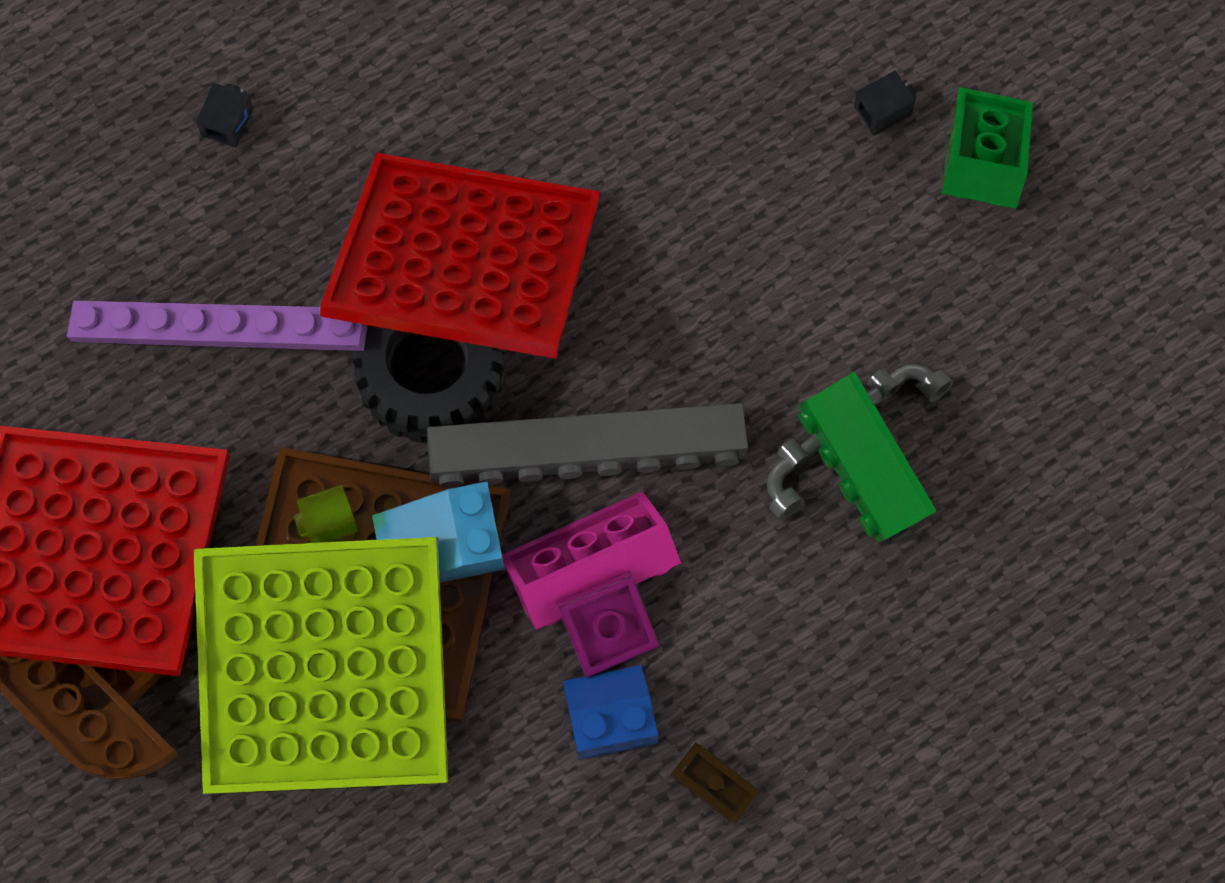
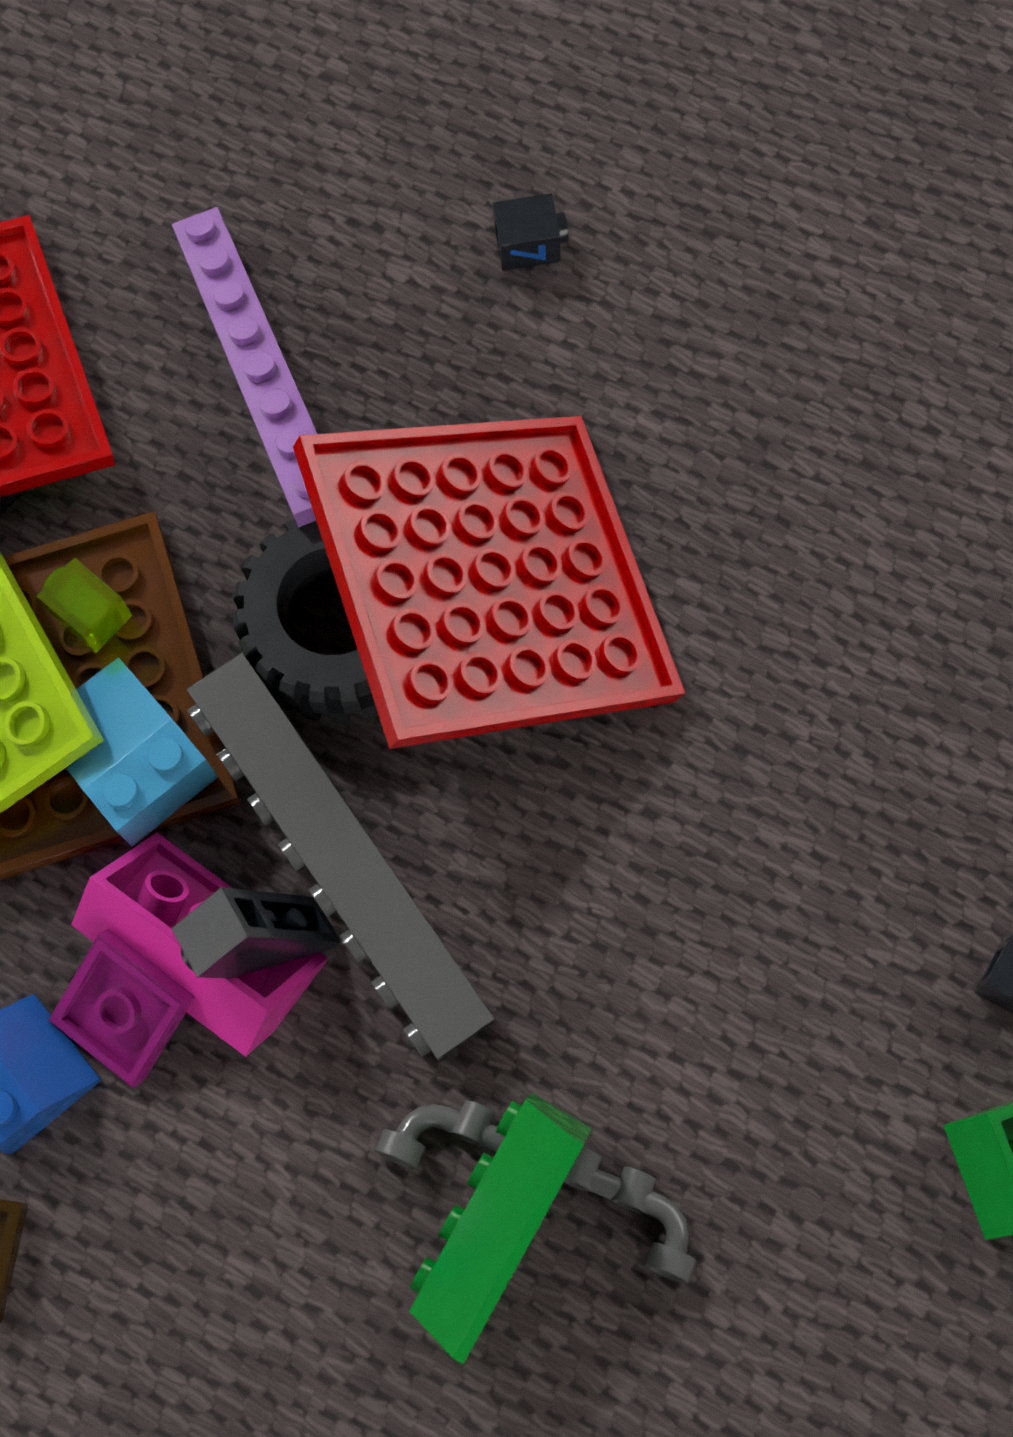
camera: 65 degrees right, 0 degrees up
(612, 513) = (251, 931): none -> black slope

